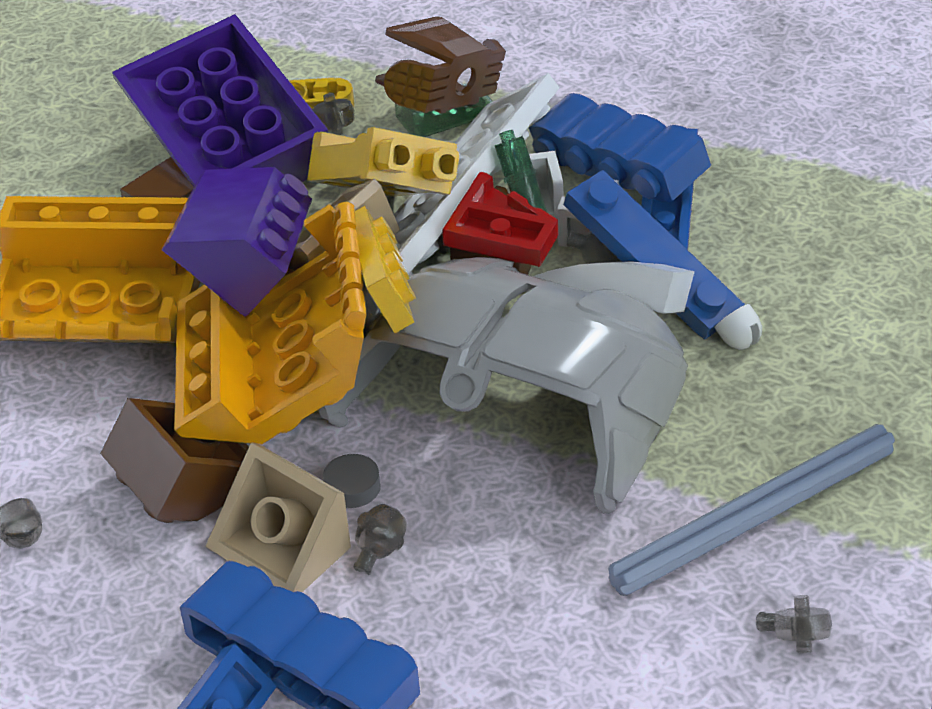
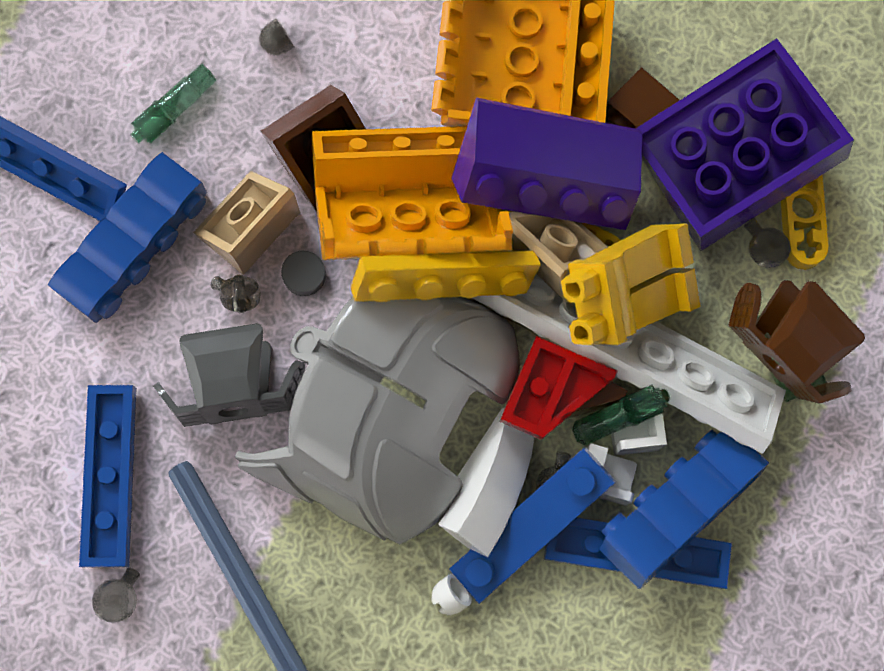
camera: 85 degrees right, 35 degrees up
(108, 633) = (172, 104): none -> clear green piece
(481, 516) = (231, 371): none -> dark grey piece
(637, 647) = (108, 476): none -> blue plate

